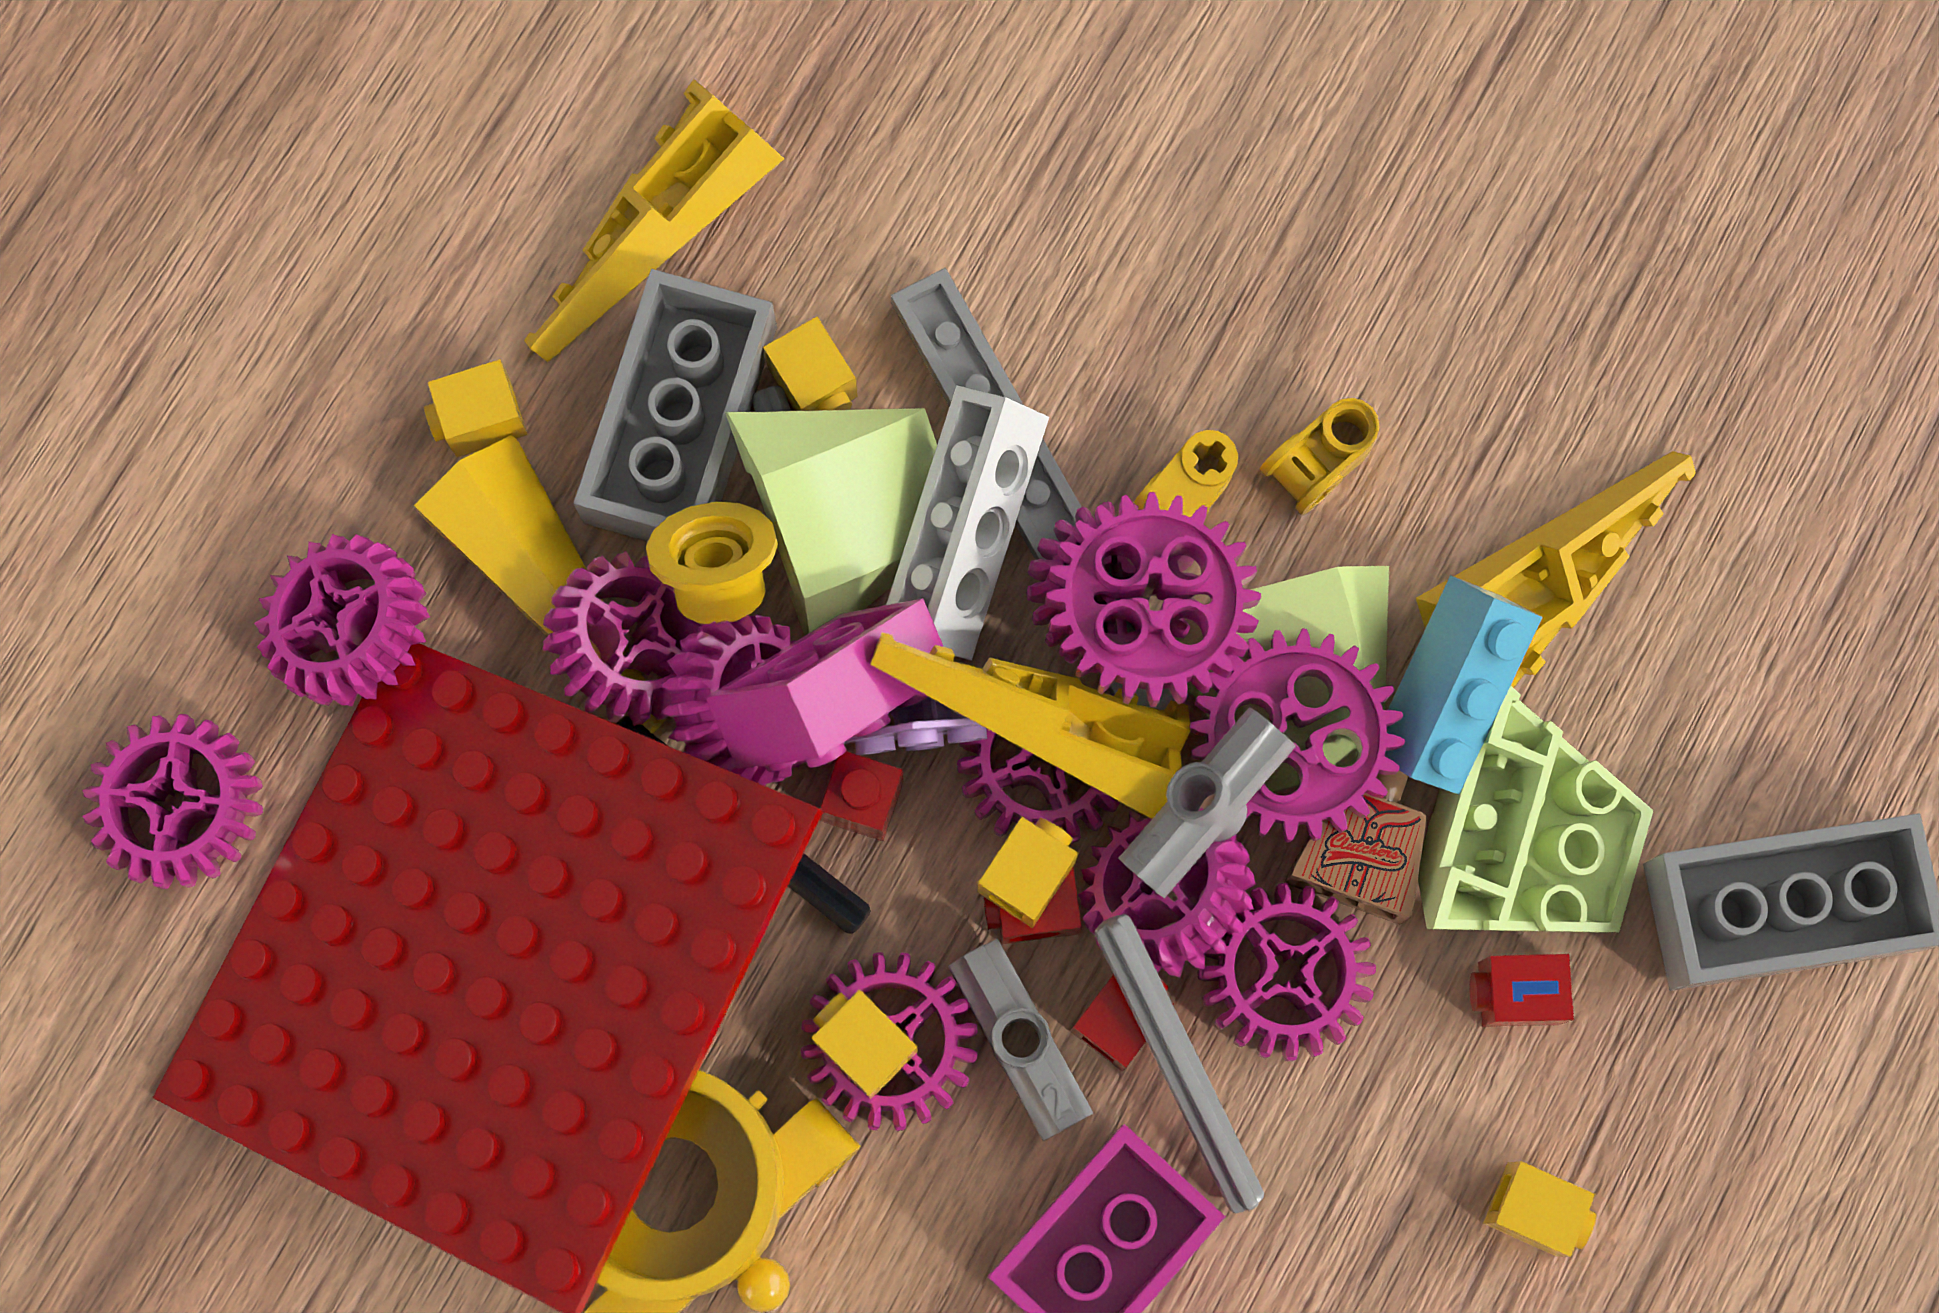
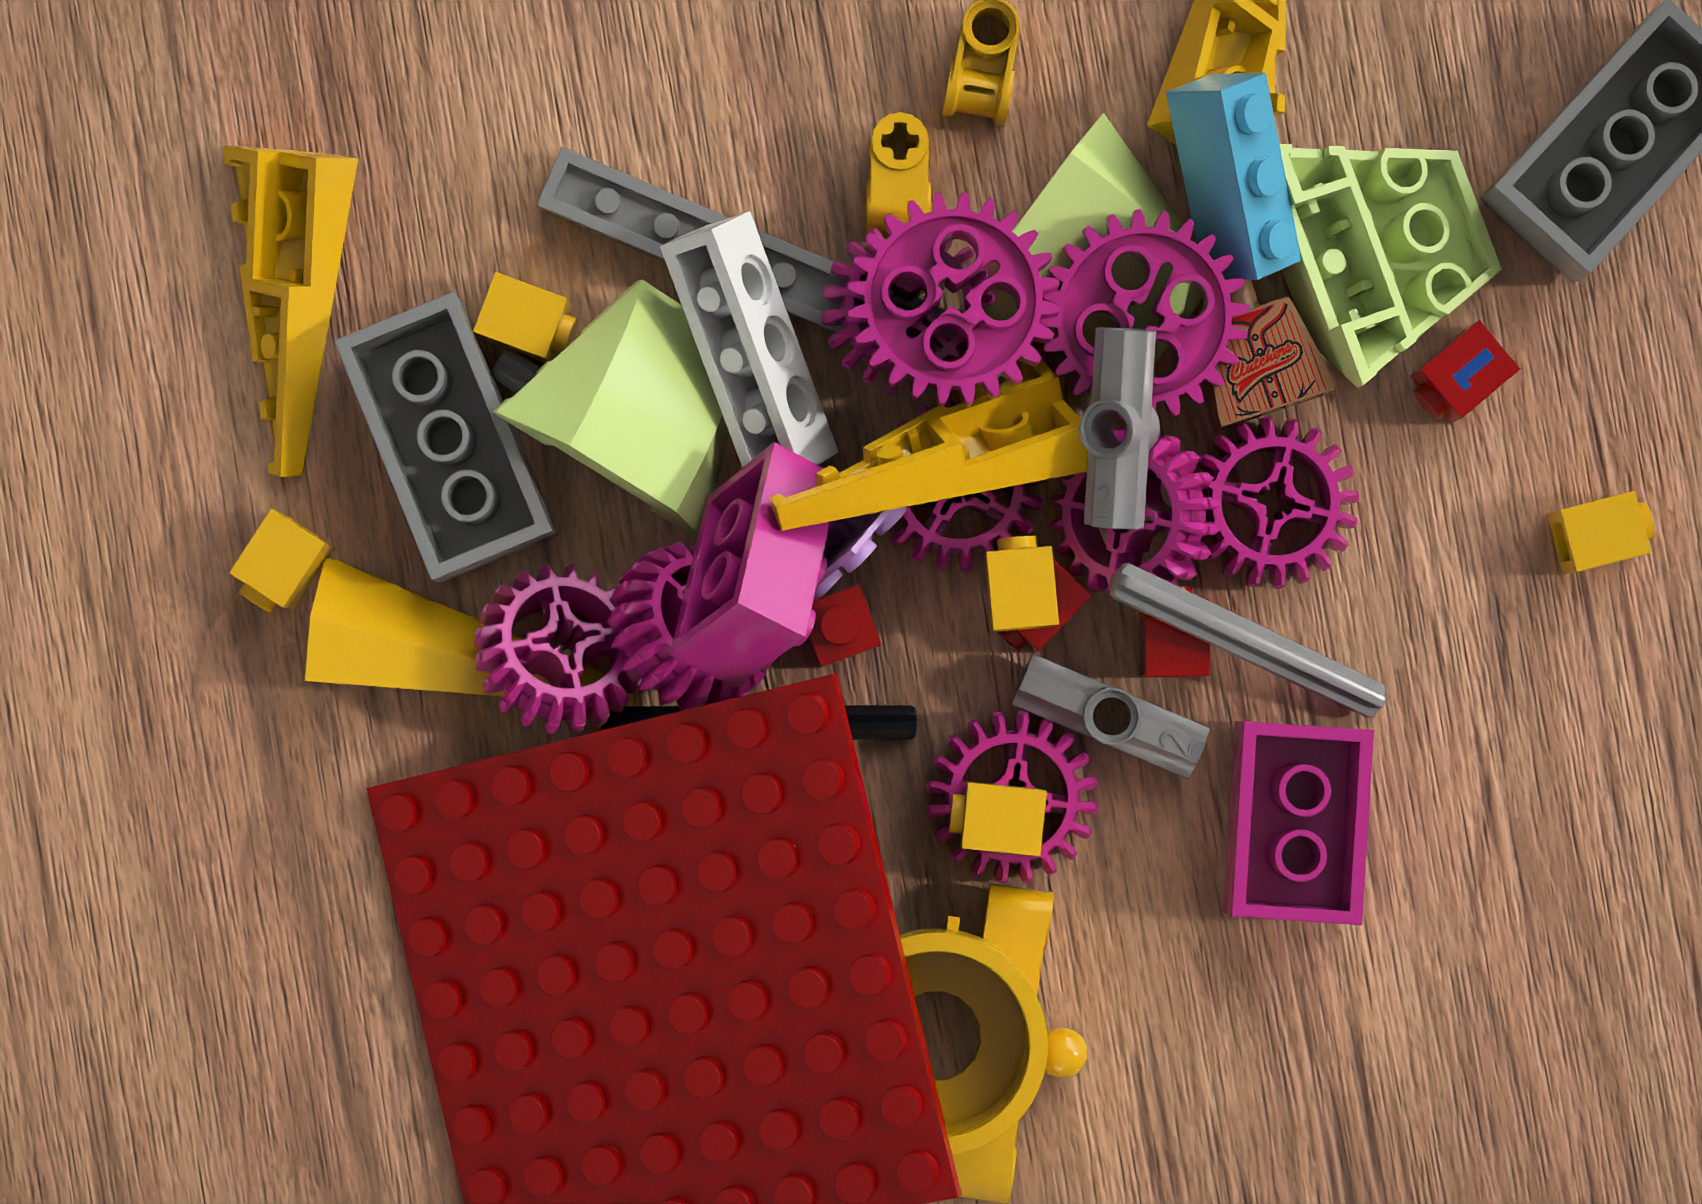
camera: 40 degrees left, 10 degrees up
(172, 829) = (261, 1086): dark pink gear -> none
(364, 626) = (293, 849): dark pink gear -> none
(713, 559) = (581, 537): yellow piece -> none

